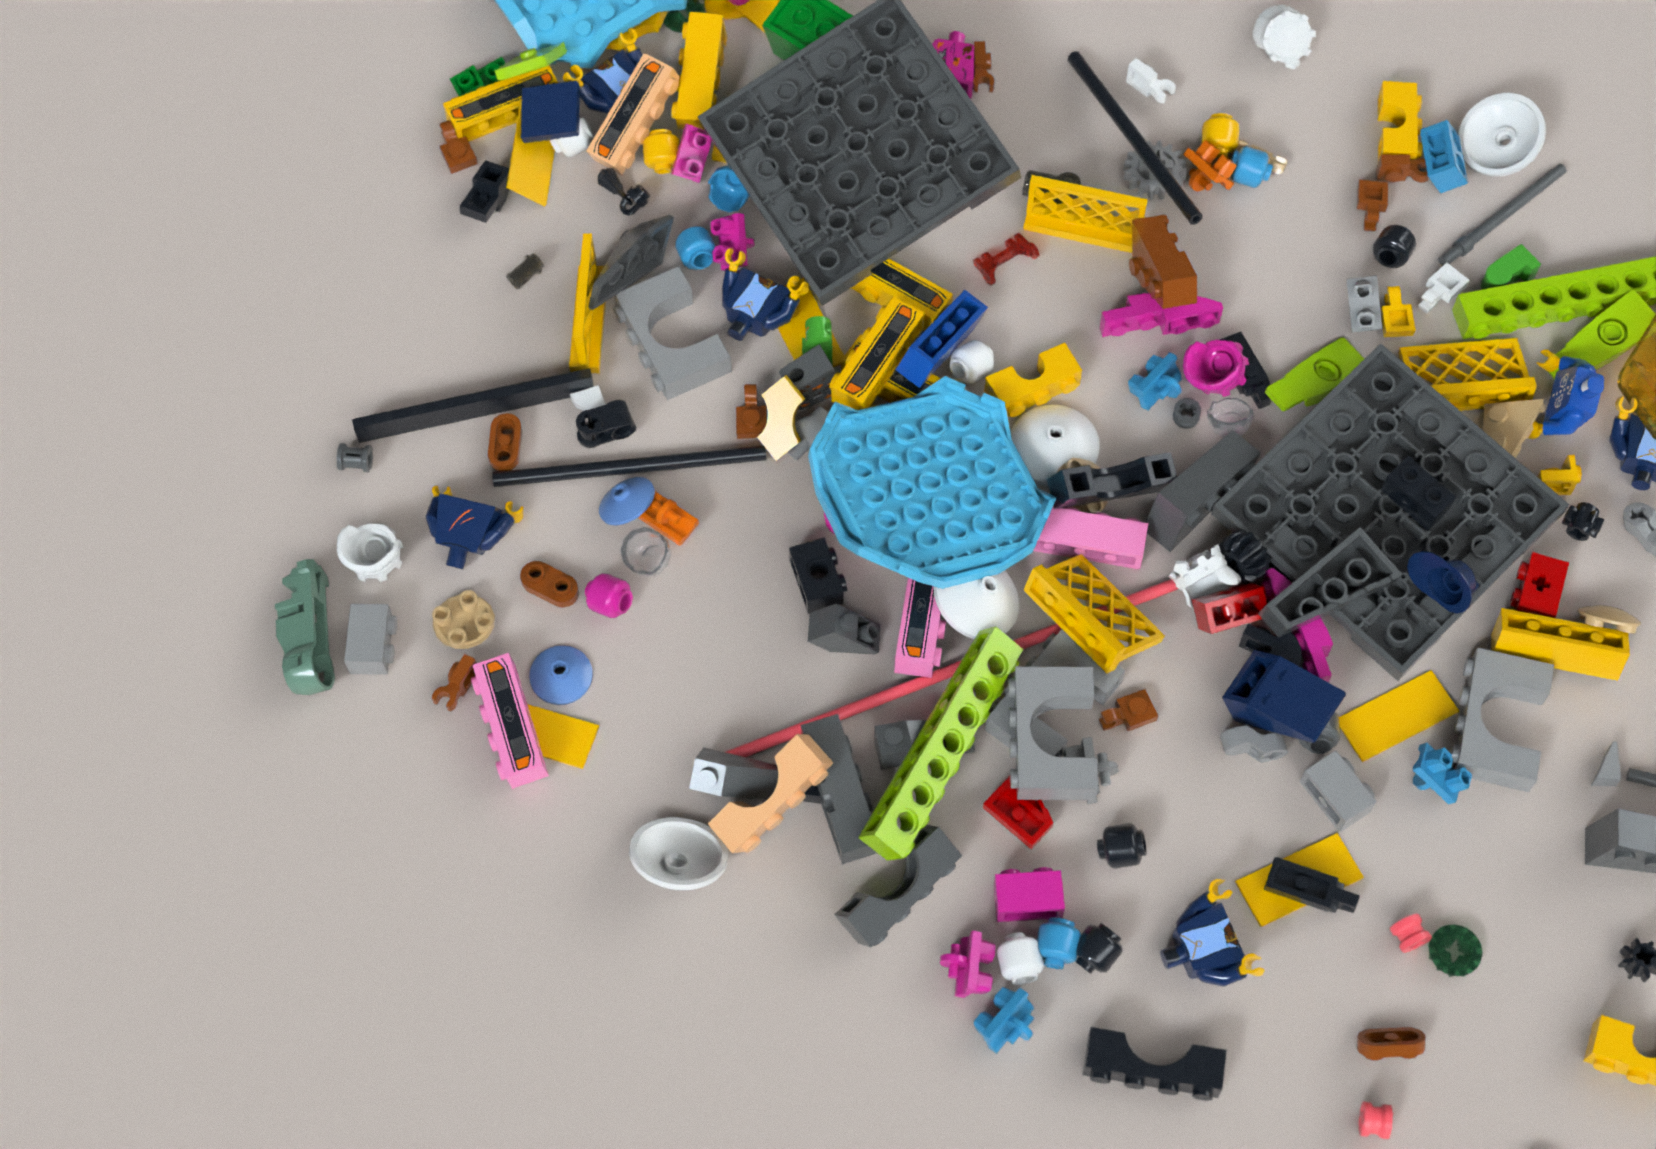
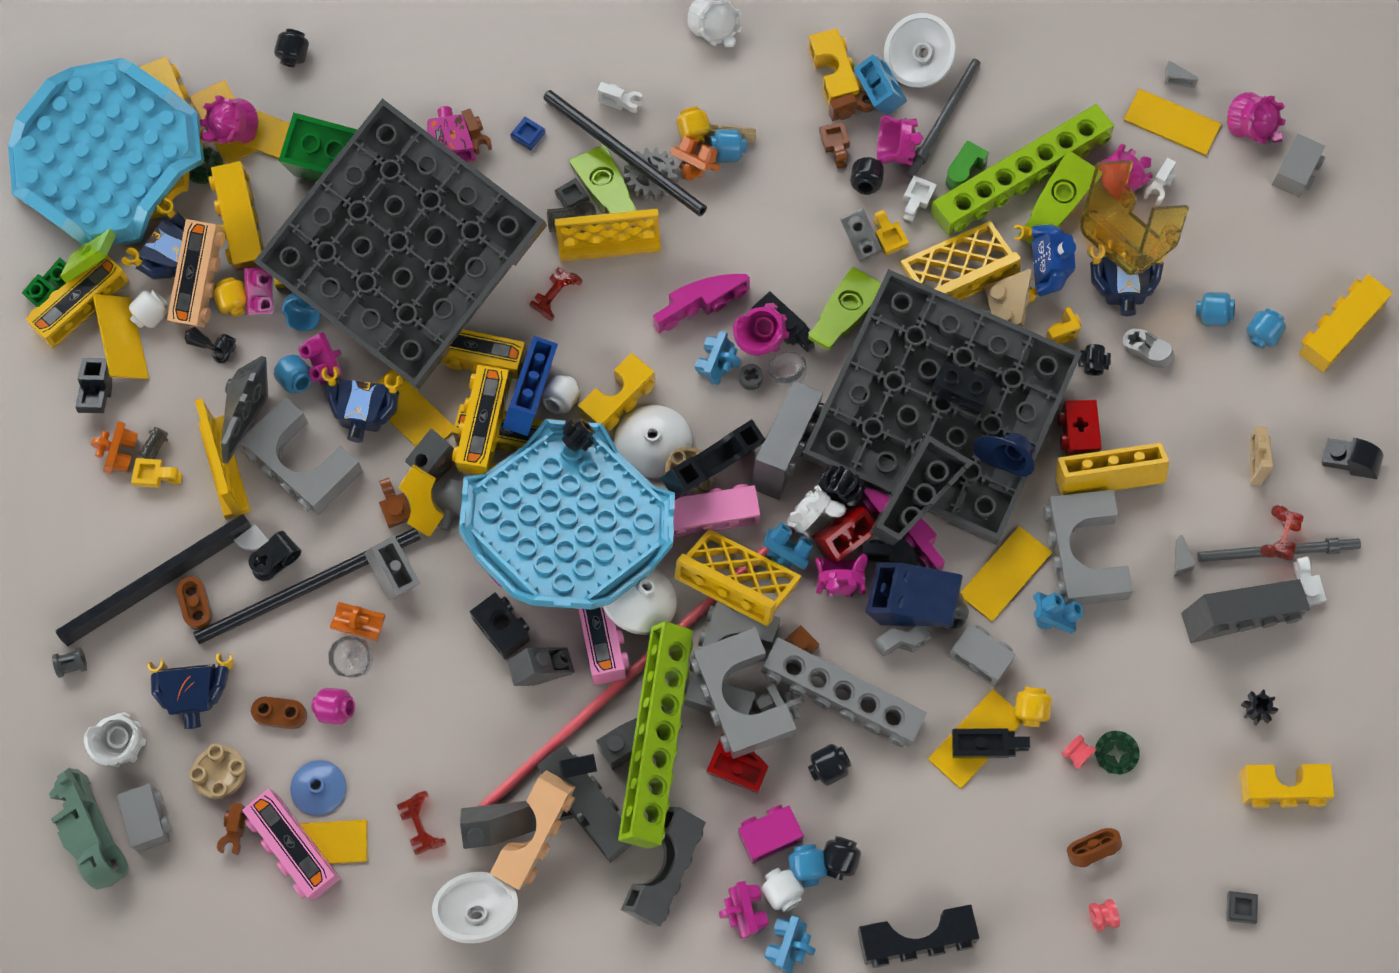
camera: 20 degrees left, 5 degrees up
(456, 151) = (52, 356): dark orange plate -> none
(479, 272) = (121, 437): none -> orange hips
(511, 298) = (151, 473): none -> yellow plate
(550, 112) = (123, 296): dark blue tile -> none
(626, 501) = (317, 618): medium blue dish -> none
(654, 769) = (414, 806): none -> clear red piece
(723, 475) = (391, 568): none -> light grey brick
(818, 331) = (425, 419): bright green leg -> none
(843, 742) = (578, 766): none -> black piece
(973, 403) = (578, 435): none -> black gear
(1037, 88) = (527, 133): none -> blue tile
(1061, 162) = (571, 194): none -> dark grey tile
(1099, 158) = (603, 180): none -> lime piece
(1116, 709) = (858, 690): none -> light grey brick
(1156, 604) = (785, 551): none -> dark azure hips
(1160, 265) = (686, 260): dark orange wedge -> none
(1208, 942) = (926, 820): torso -> none
(1209, 653) = (841, 576): none -> dark pink hair
(1376, 865) = (1033, 706): none -> yellow head
(1441, 219) = (897, 140): none -> dark pink hair
(1598, 614) = (1138, 433): tan dish -> none

